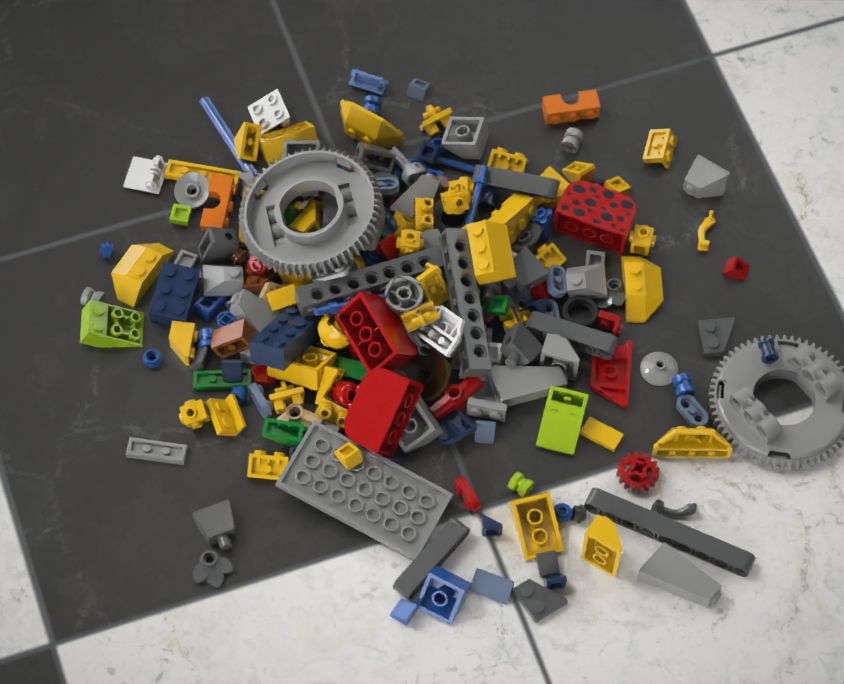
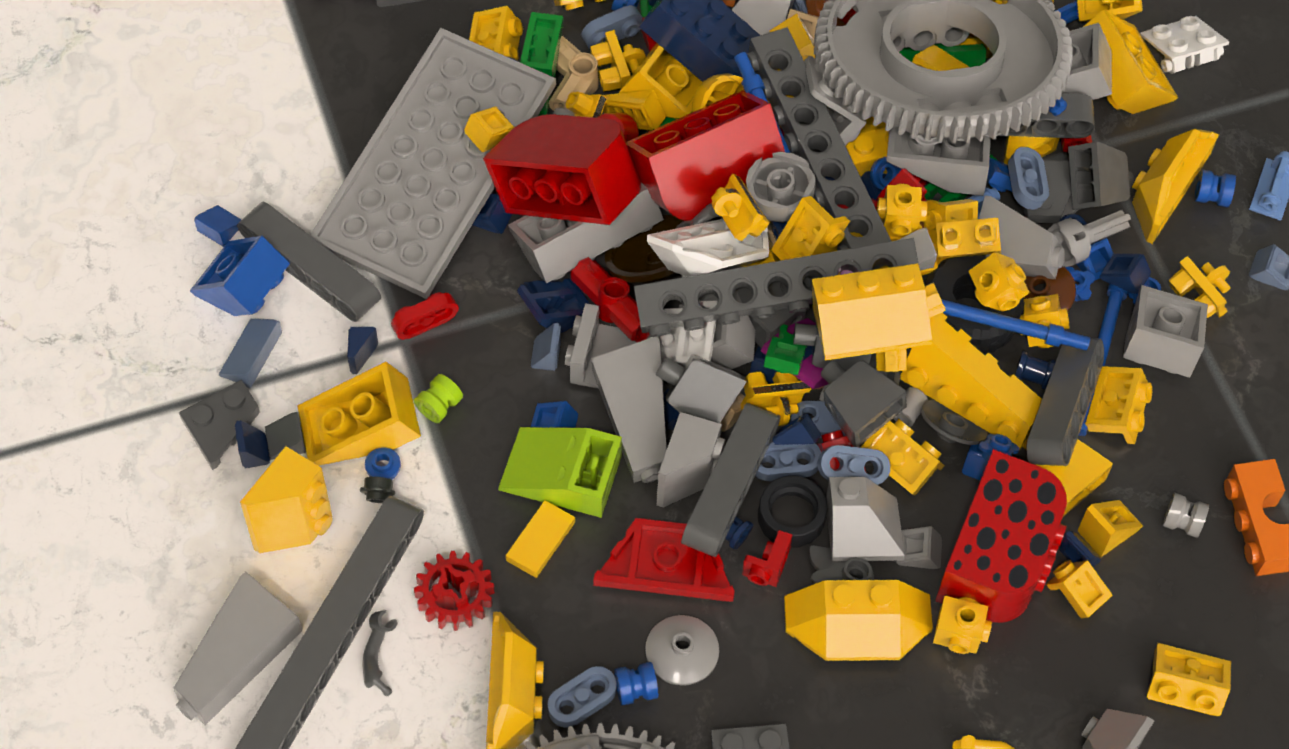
camera: 90 degrees right, 0 degrees up
(529, 430) = (555, 415): none -> blue slope

